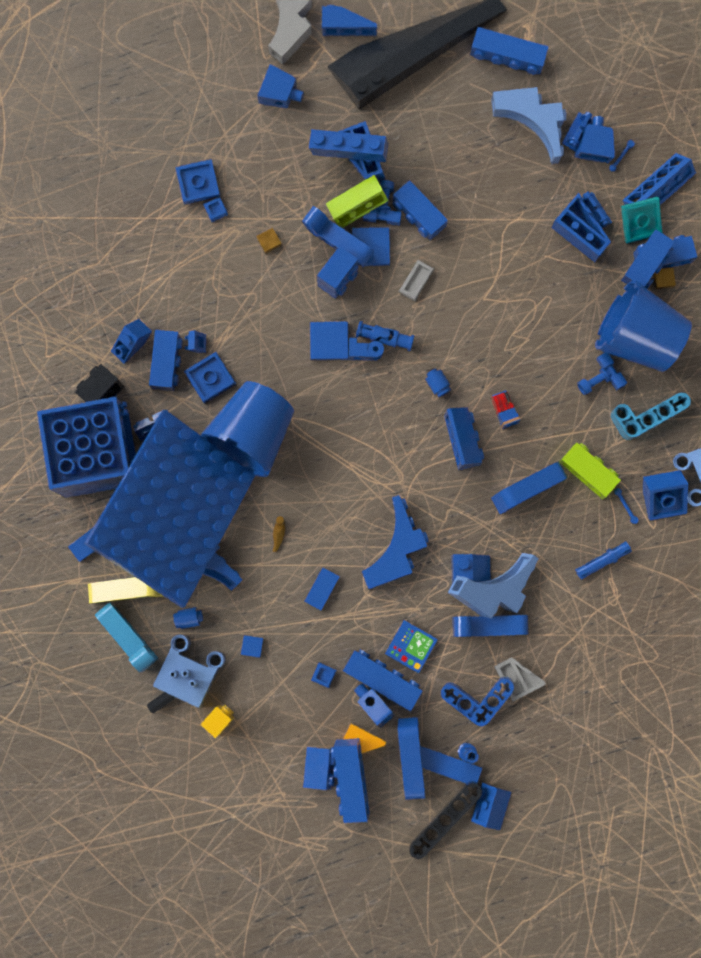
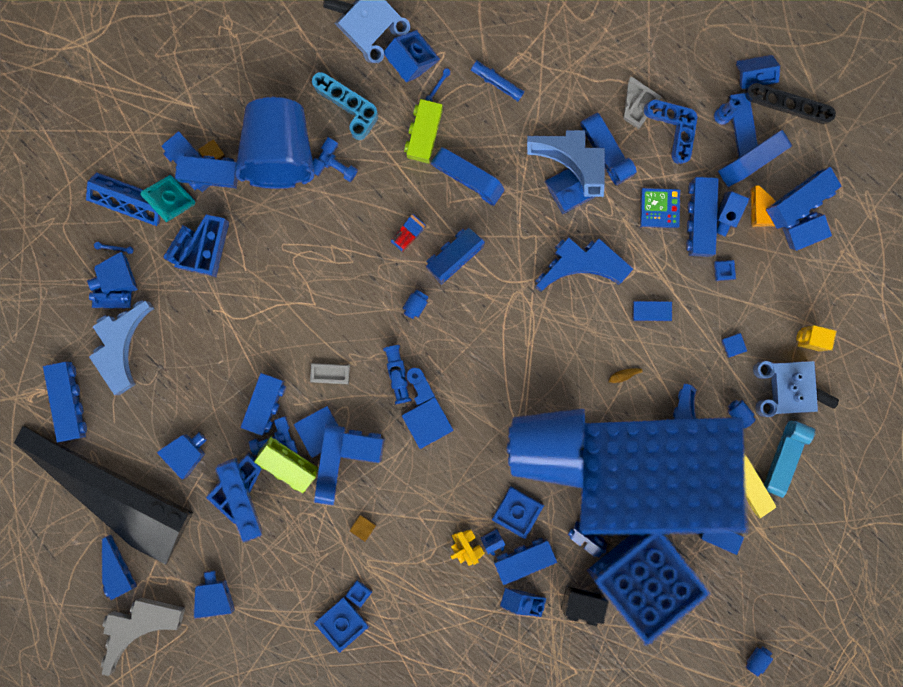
camera: 120 degrees left, 5 degrees up
(195, 318) = (463, 550): none -> yellow hips
(412, 124) = (183, 454): none -> blue torso

